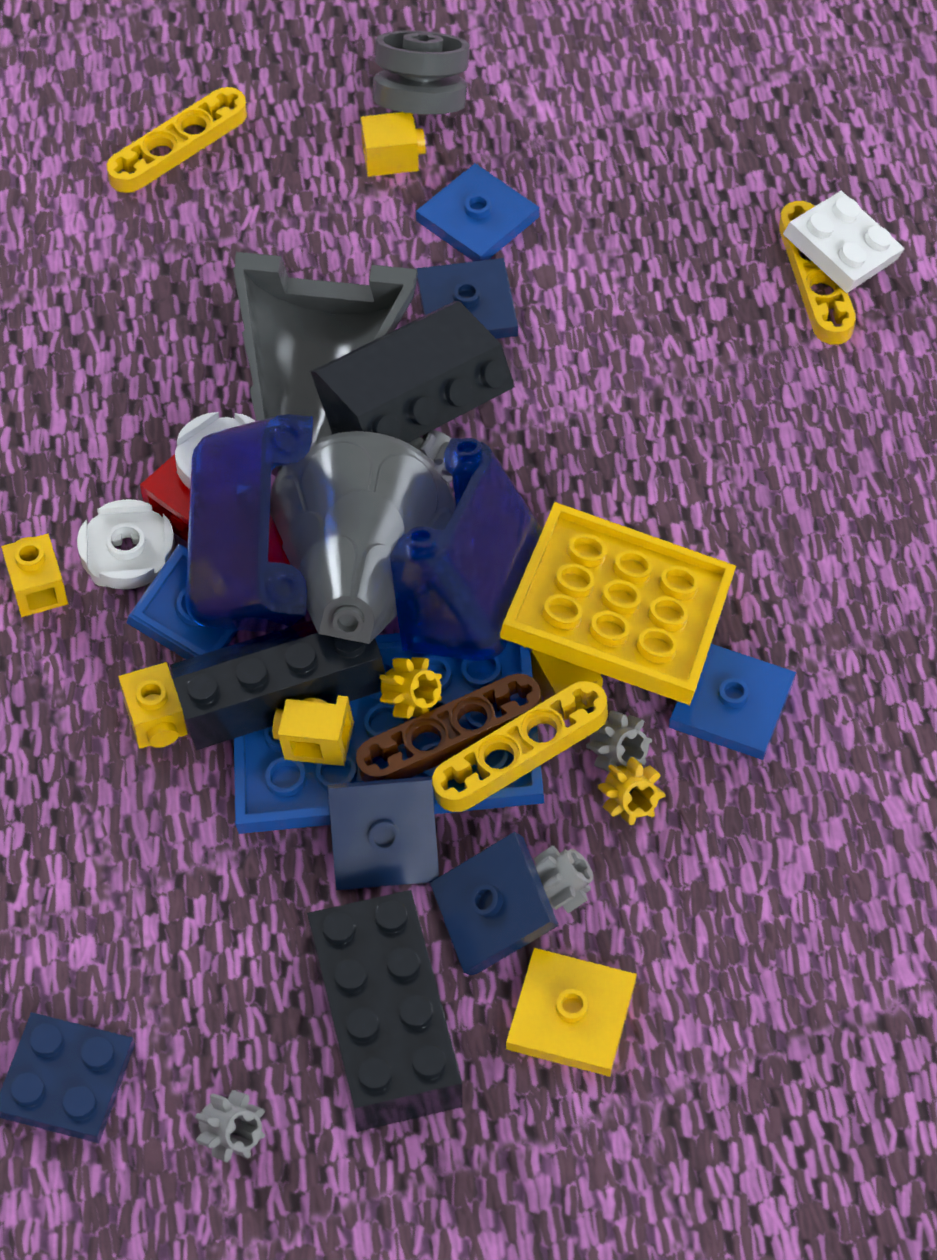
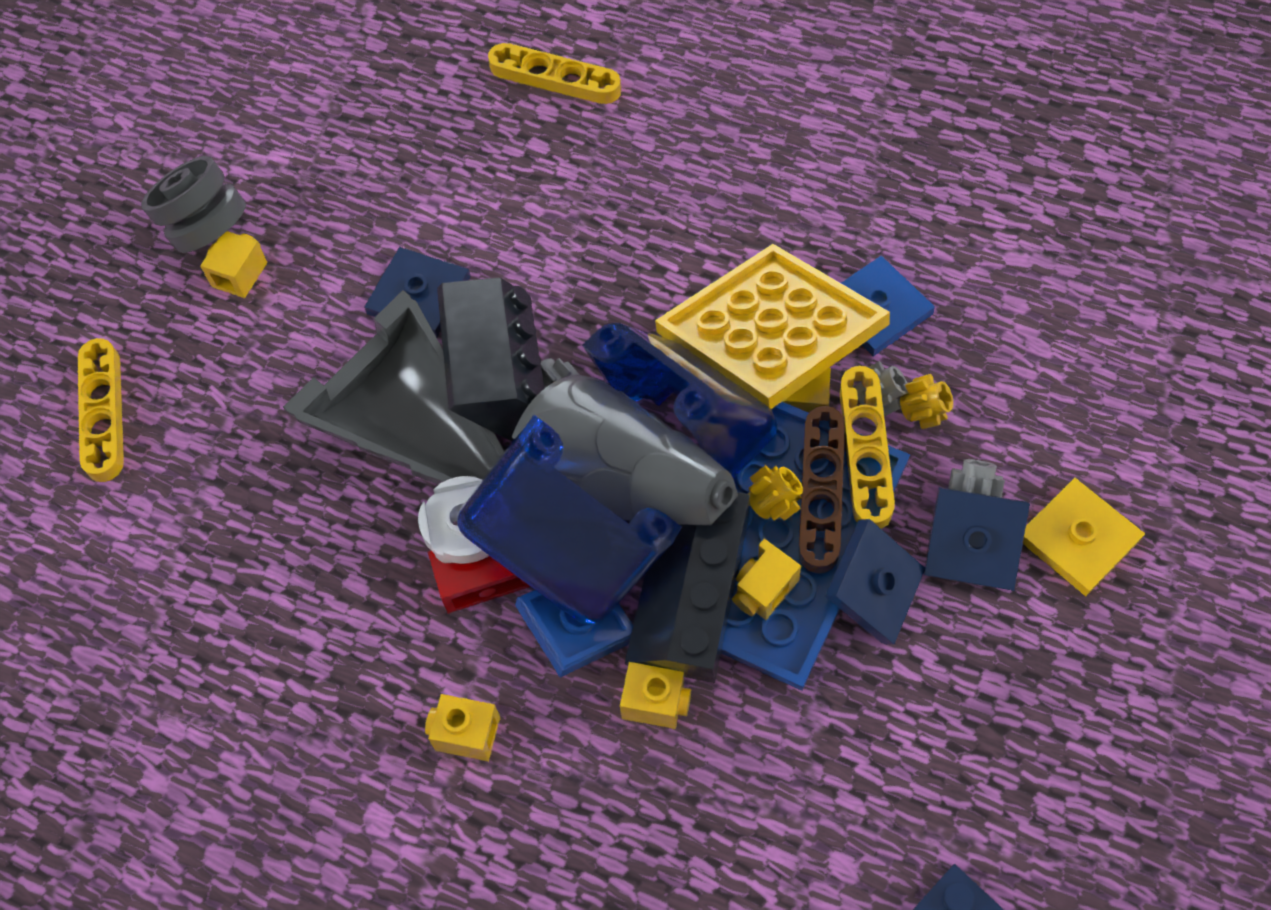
camera: 55 degrees left, 5 degrees up
(125, 567) = (470, 619): white plate -> none
(230, 1125) = (1077, 824): light grey gear -> none
(385, 1011) = (1030, 660): black brick -> none
(477, 214) = (342, 244): blue plate -> none
(843, 241) = (547, 41): white plate -> none

